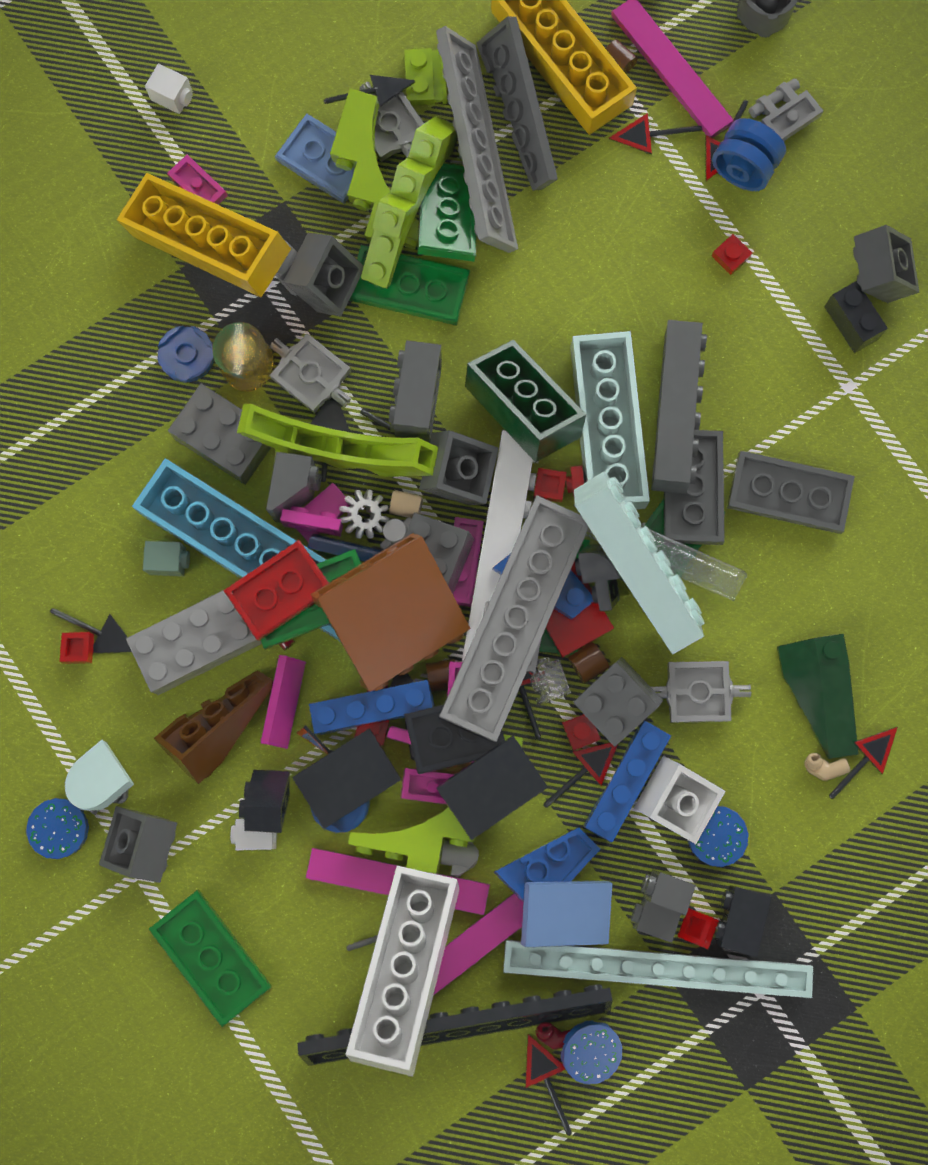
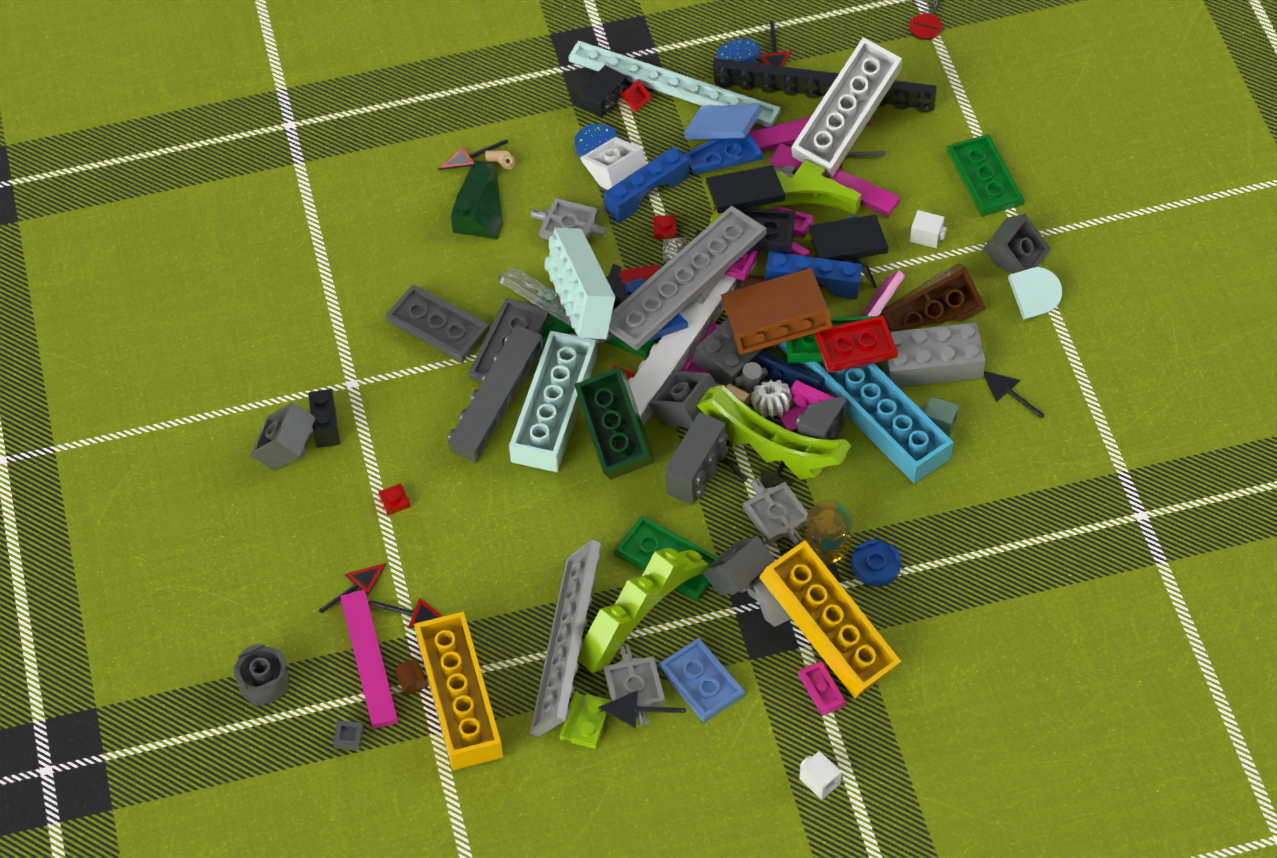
camera: 160 degrees left, 25 degrees down
(57, 829) = (1076, 275): blue tile -> none
(76, 647) = (1028, 379): red plate -> none
(210, 429) = (865, 487): dark grey brick -> none
(265, 801) = (912, 237): black brick -> none
(356, 149) = (673, 657): lime arch -> none
(446, 217) = (619, 562): green tile -> none
(507, 61) = (514, 661): dark grey wing -> none
(575, 480) = (597, 367): red plate -> none
(588, 662) = (640, 258): reddish brown brick -> none
(595, 761) = (663, 206): piece -> none
(618, 701) = (631, 226): dark grey brick -> none
(662, 905) = (652, 111): dark grey brick -> none
(749, 154) = (346, 550): blue wheel -> none
(791, 117) = (291, 583): light grey plate -> none

